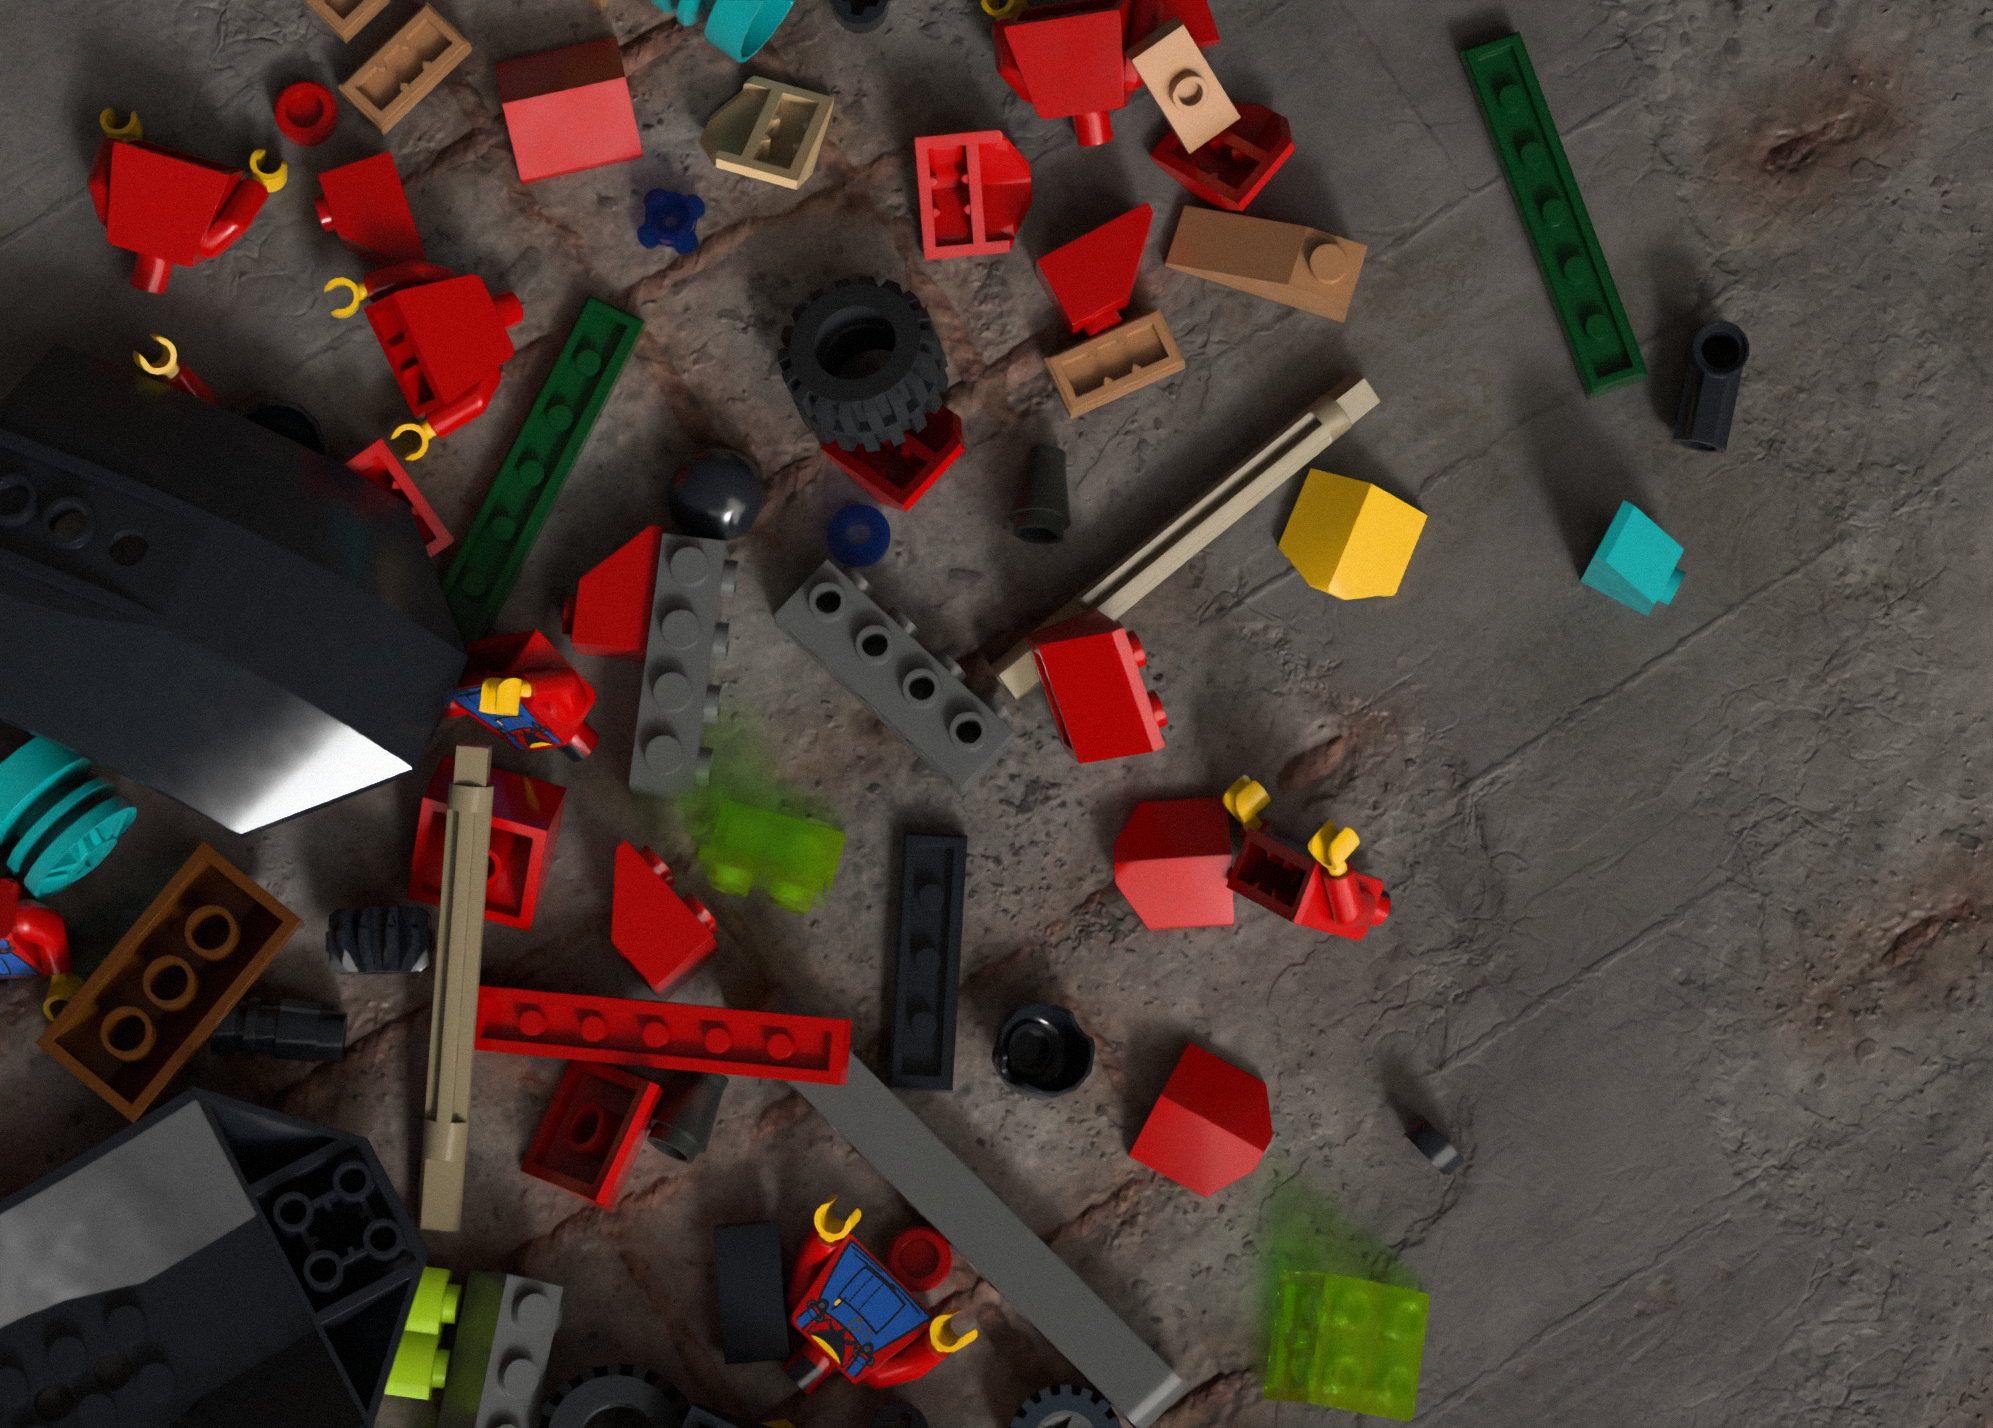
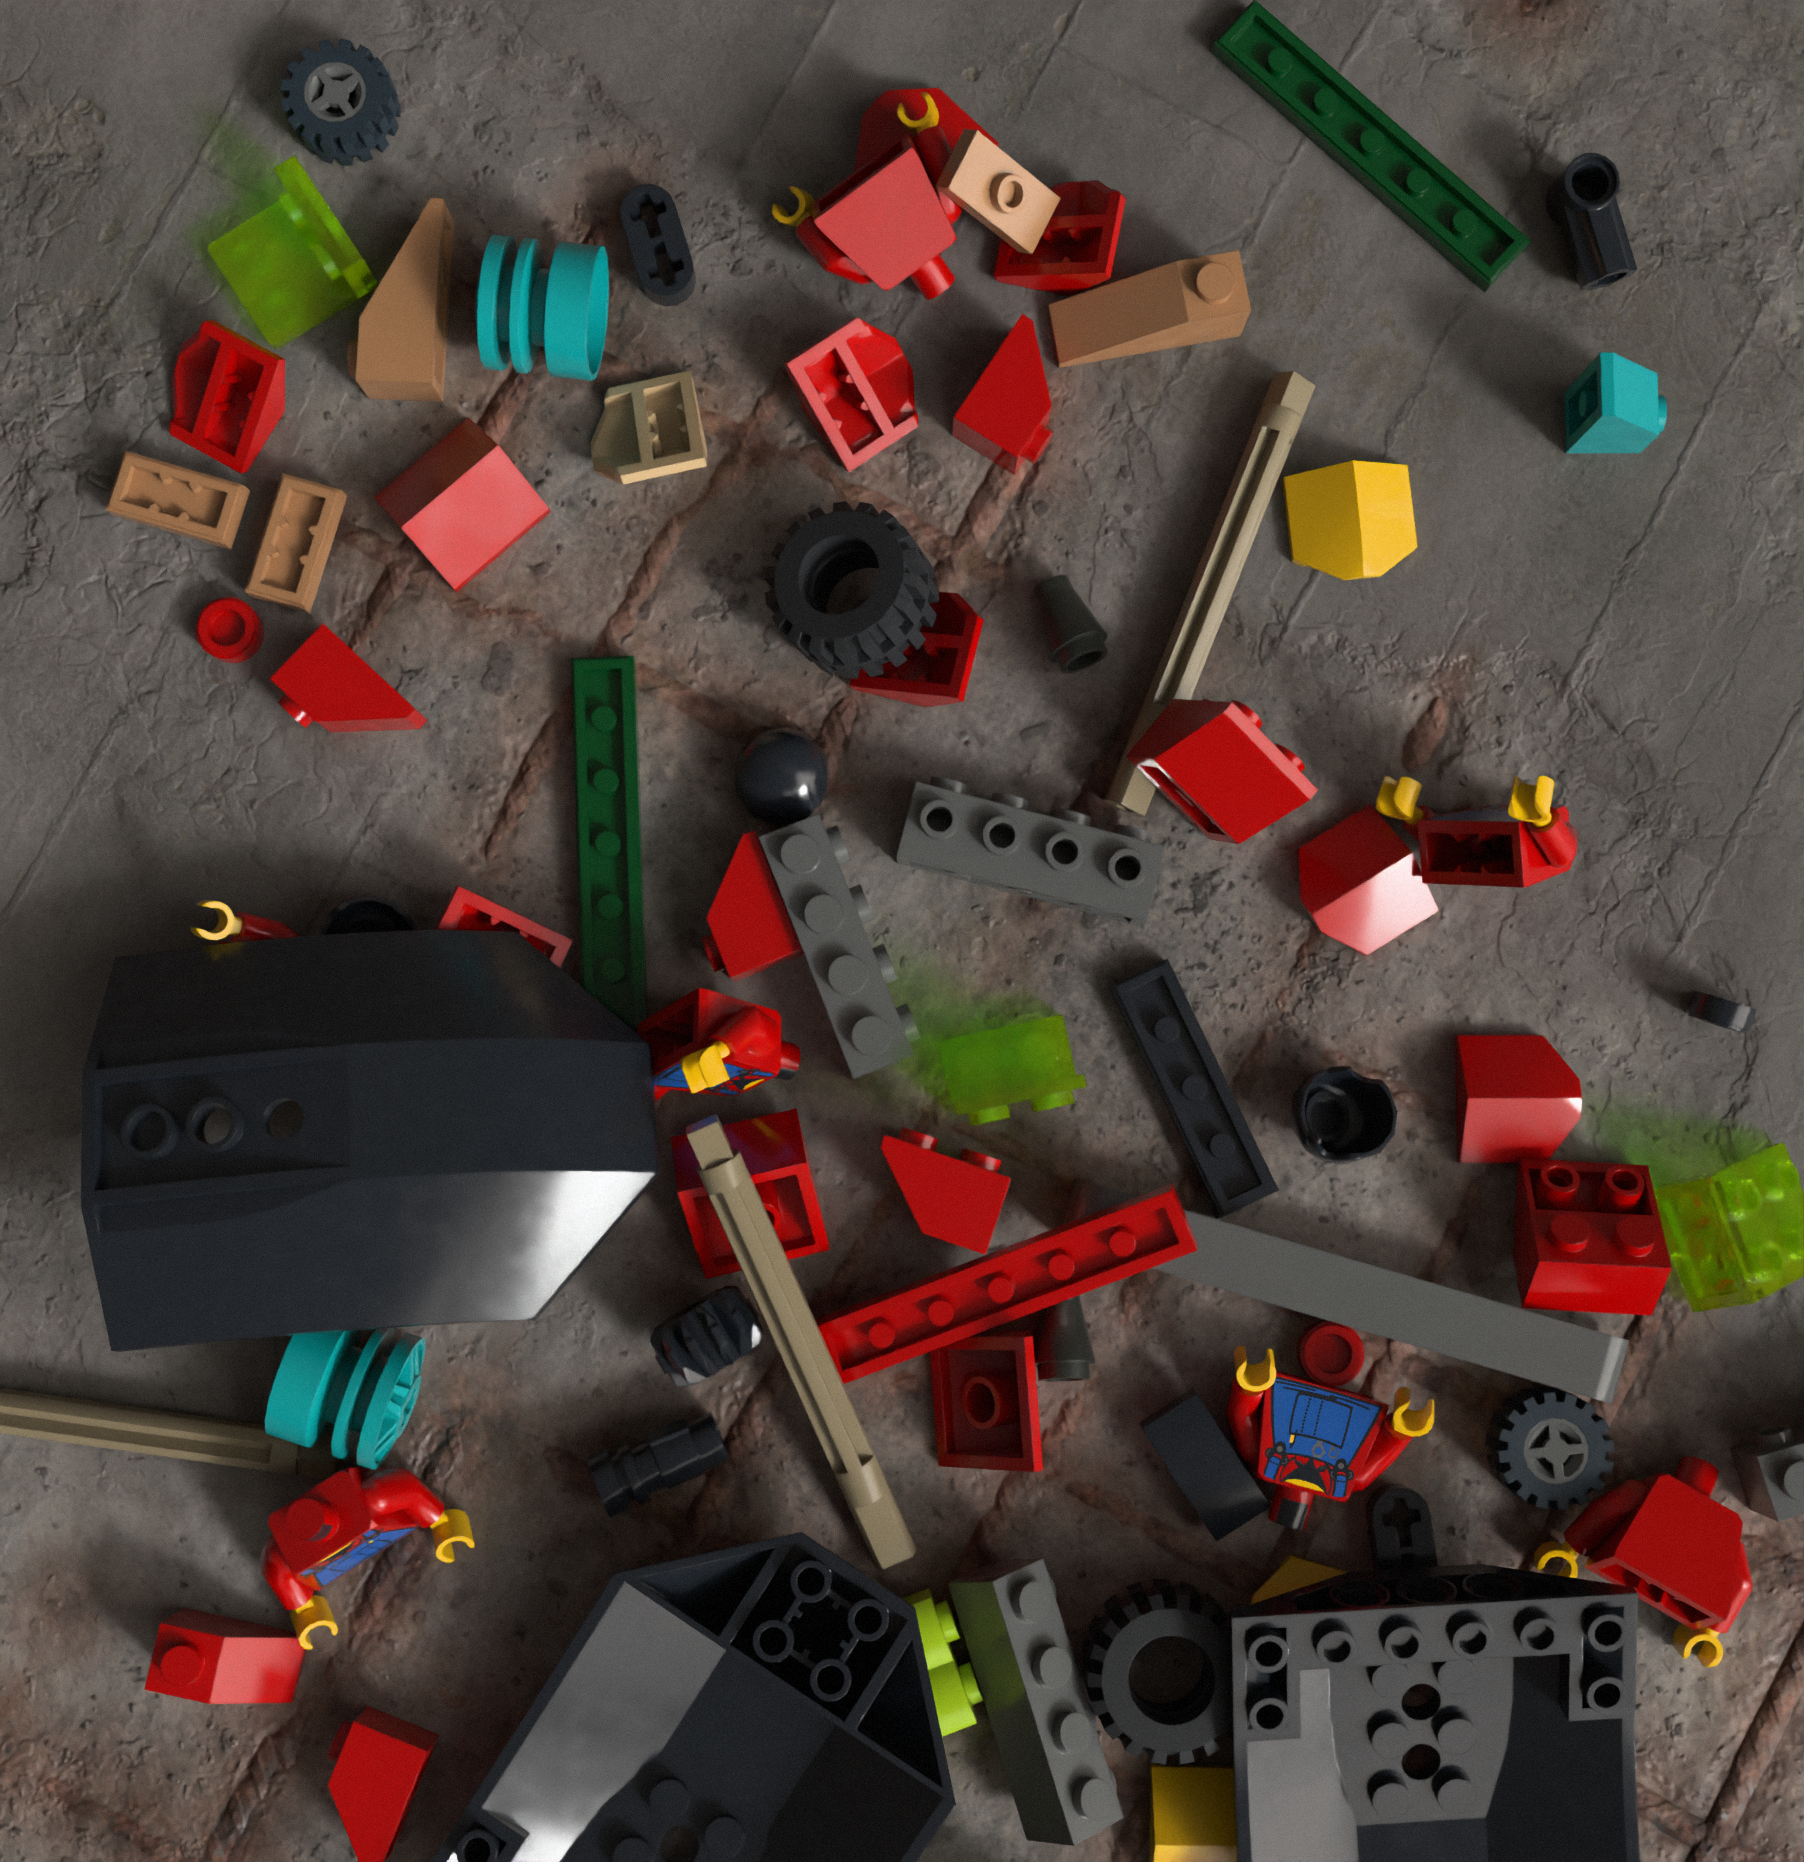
camera: 30 degrees left, 5 degrees up
(169, 982) = (540, 1480): reddish brown slope -> none
(171, 201) = (150, 772): red torso -> none
(439, 340) = (460, 768): red torso -> none
(665, 204) = (591, 546): clear blue plate -> none
(864, 554) = (926, 765): clear blue plate -> none
(1114, 363) = (1066, 474): medium nougat plate -> none
(1200, 1276) = (1588, 1237): none -> red slope

